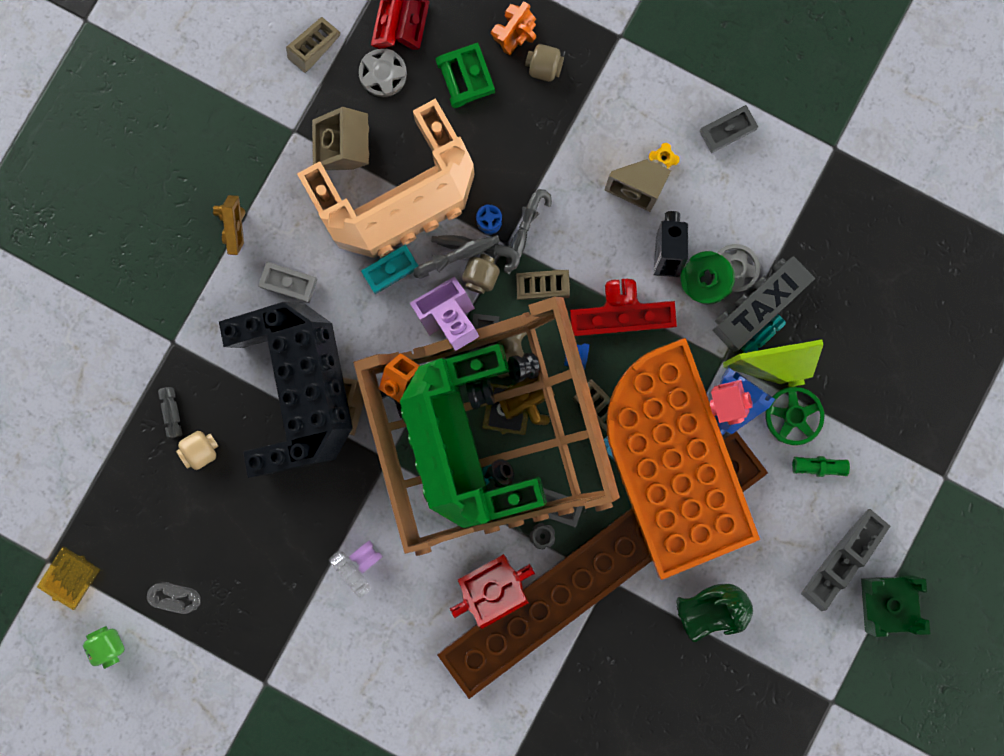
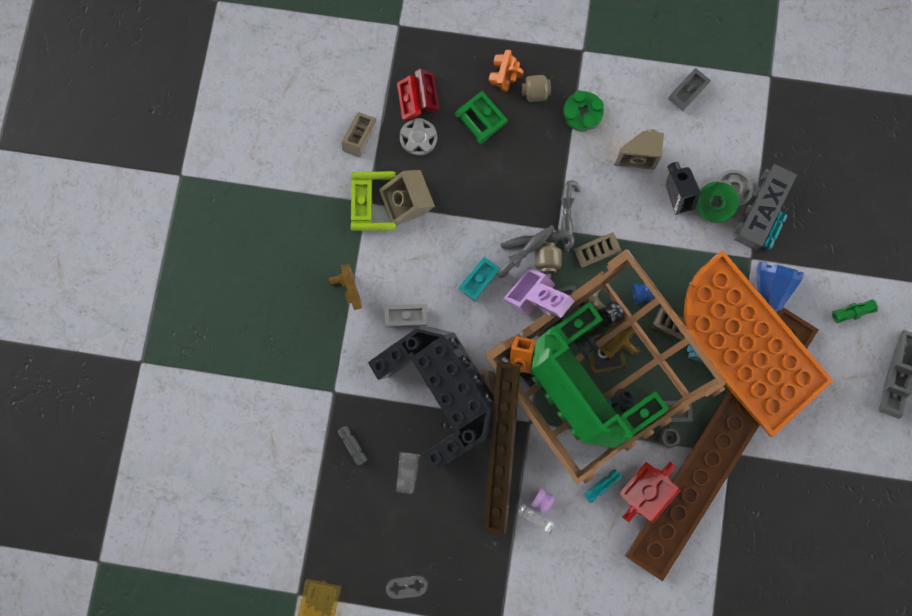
camera: 15 degrees left, 5 degrees down
(197, 450) = (384, 466): tan head -> none
(221, 466) = (407, 472): none -> clear leg
(287, 127) = (362, 201): none -> lime plate
(336, 476) = (502, 447): none -> dark brown plate
(406, 209) = (474, 229): light nougat wedge -> none
(443, 564) = (602, 486): none -> teal axle
(488, 214) = (539, 212): blue wheel -> none
(591, 96) = (587, 121): none -> green plate
(623, 312) = (666, 249): red plate -> none
(665, 150) = (650, 121): yellow plate -> none
(715, 610) = (821, 445): dark green piece -> none
(730, 402) = (774, 285): coral brick -> none
(781, 364) = (796, 246): lime slope -> none
(795, 416) = (821, 281): green wheel -> none

